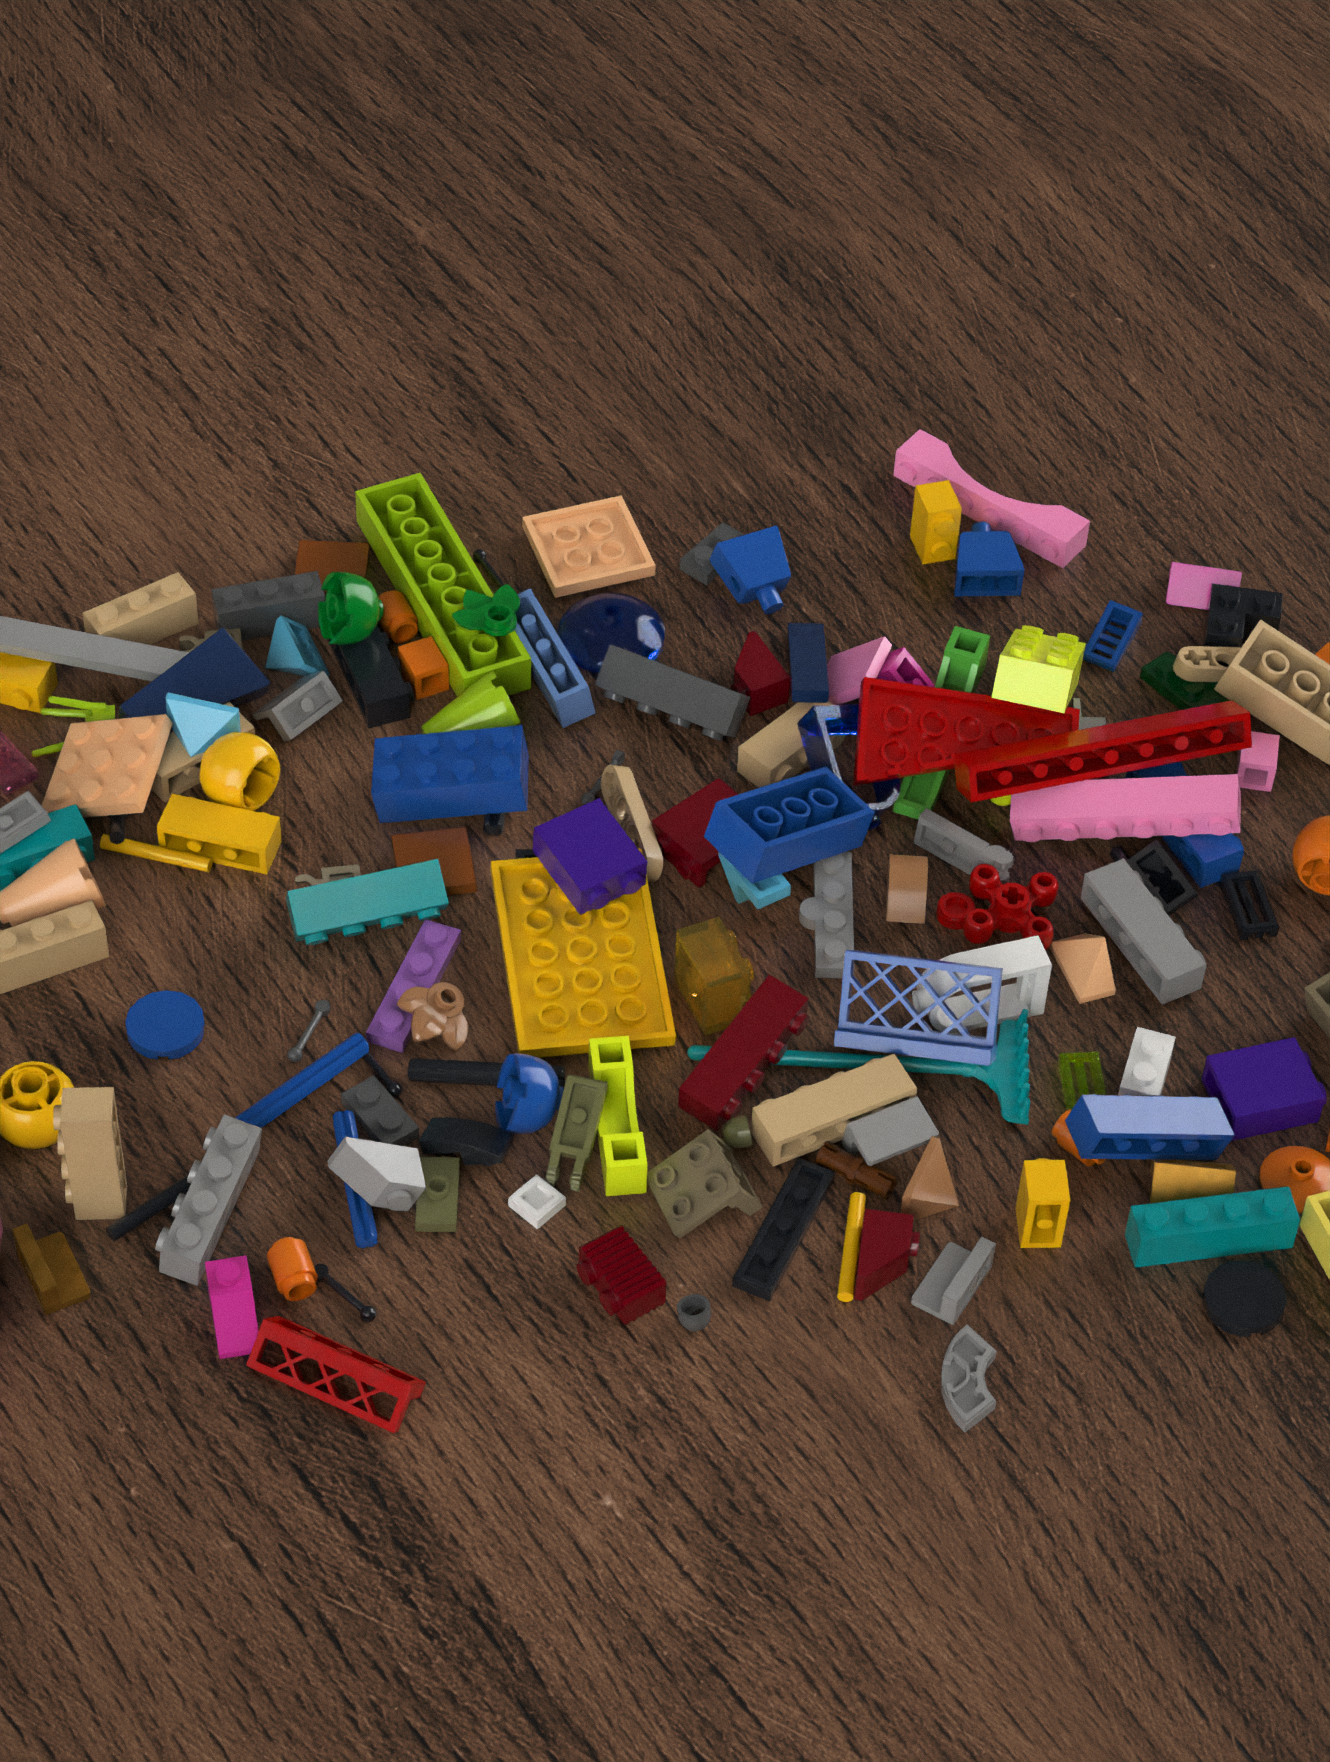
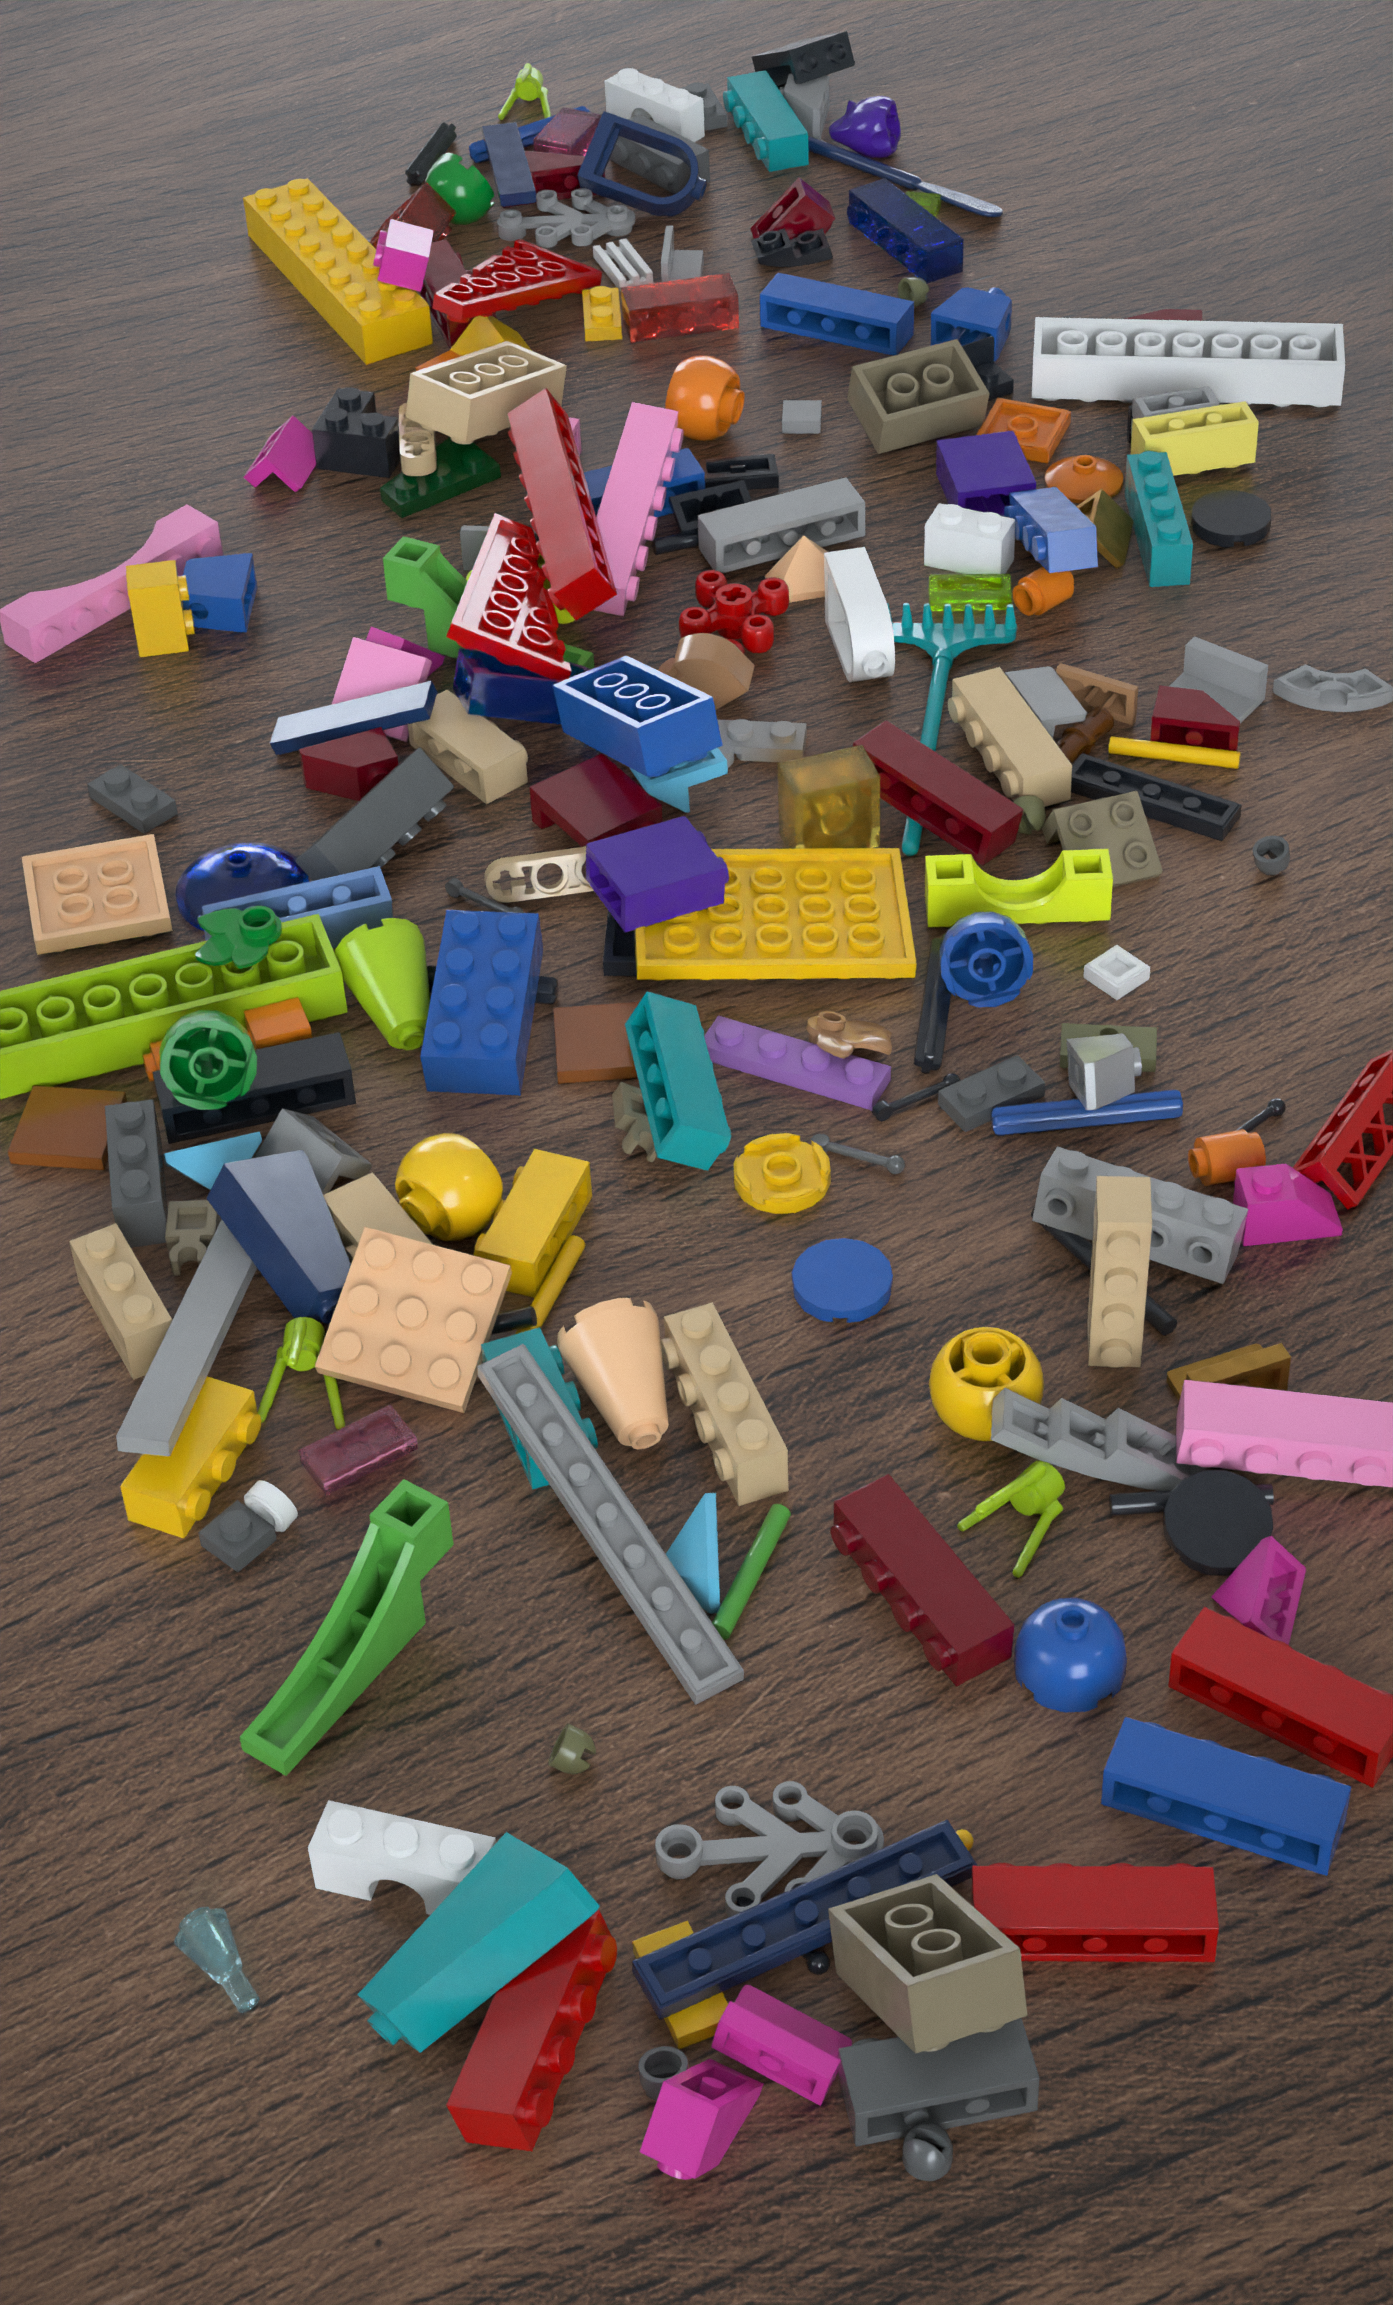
camera: 80 degrees left, 5 degrees down
(200, 721) = (372, 1203): medium azure slope -> none
(285, 984) = (782, 1173): none -> yellow tile
(305, 1081) = (953, 1150): blue axle -> none
(473, 1139) = (1038, 1015): black slope -> none
(576, 1127) = (1043, 919): olive hinge -> none
(621, 1275) = (1226, 902): dark red brick -> none
(754, 567) = (185, 751): blue torso -> none
(916, 1041) = (923, 671): fence -> none
(960, 846) = (648, 634): light grey hinge -> none
(1039, 669) = (457, 518): neon yellow brick -> none
(1042, 1203) = (1143, 604): yellow brick -> none
(1122, 616) = (336, 517): blue slope -> none

